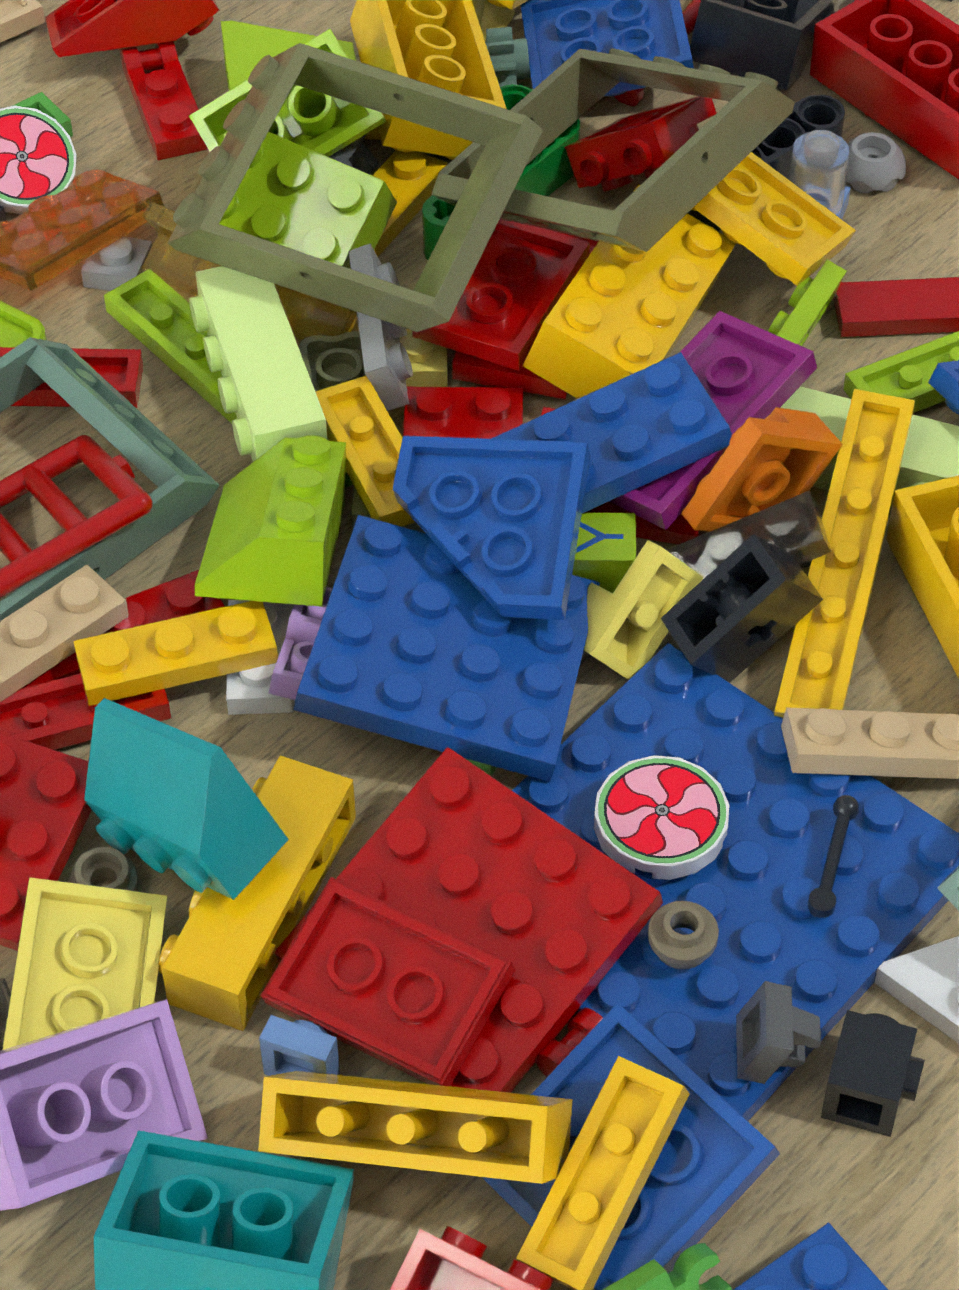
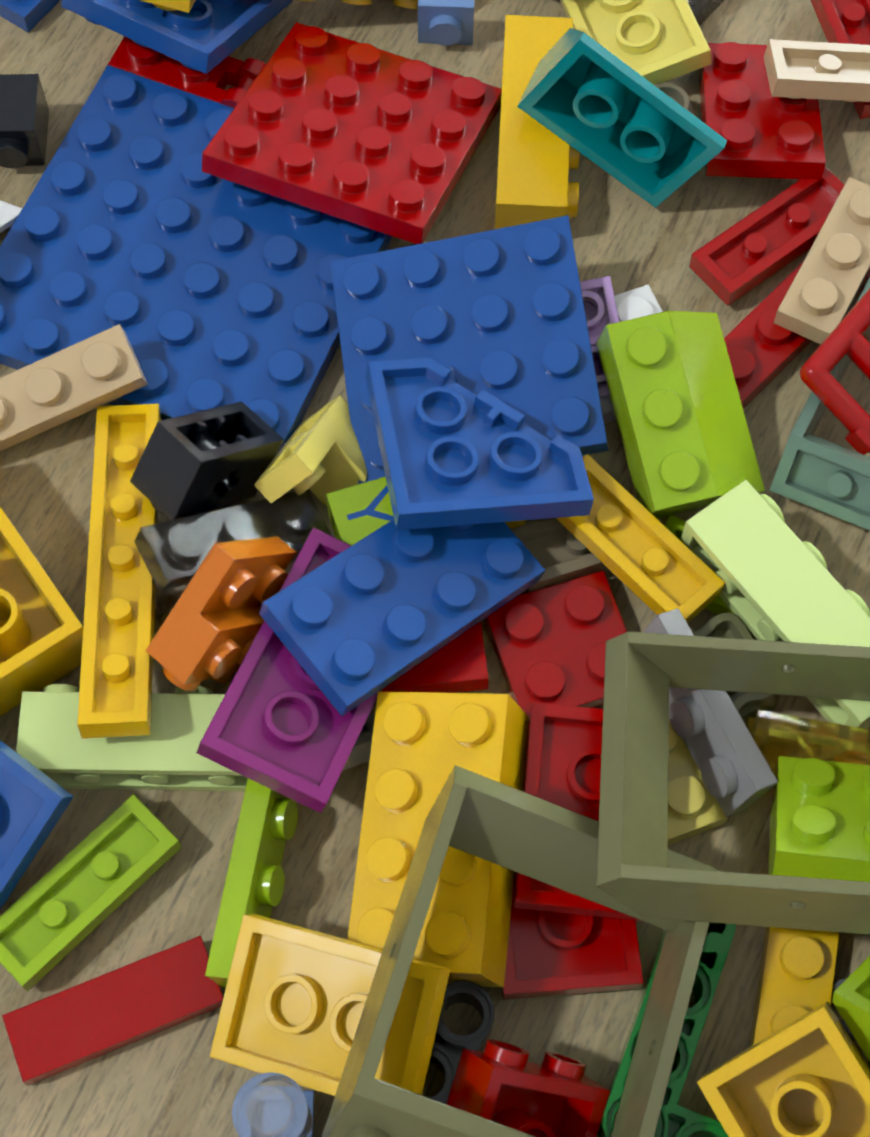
camera: 160 degrees right, 15 degrees up
(175, 651) = (720, 277): yellow plate -> none
(388, 983) = (397, 59): red tile -> none
(661, 816) = (227, 255): tile -> none
(678, 949) = (182, 171): dark tan plate -> none
(773, 1033) = (85, 89): dark grey tile -> none
(822, 899) = (75, 231): black hinge -> none

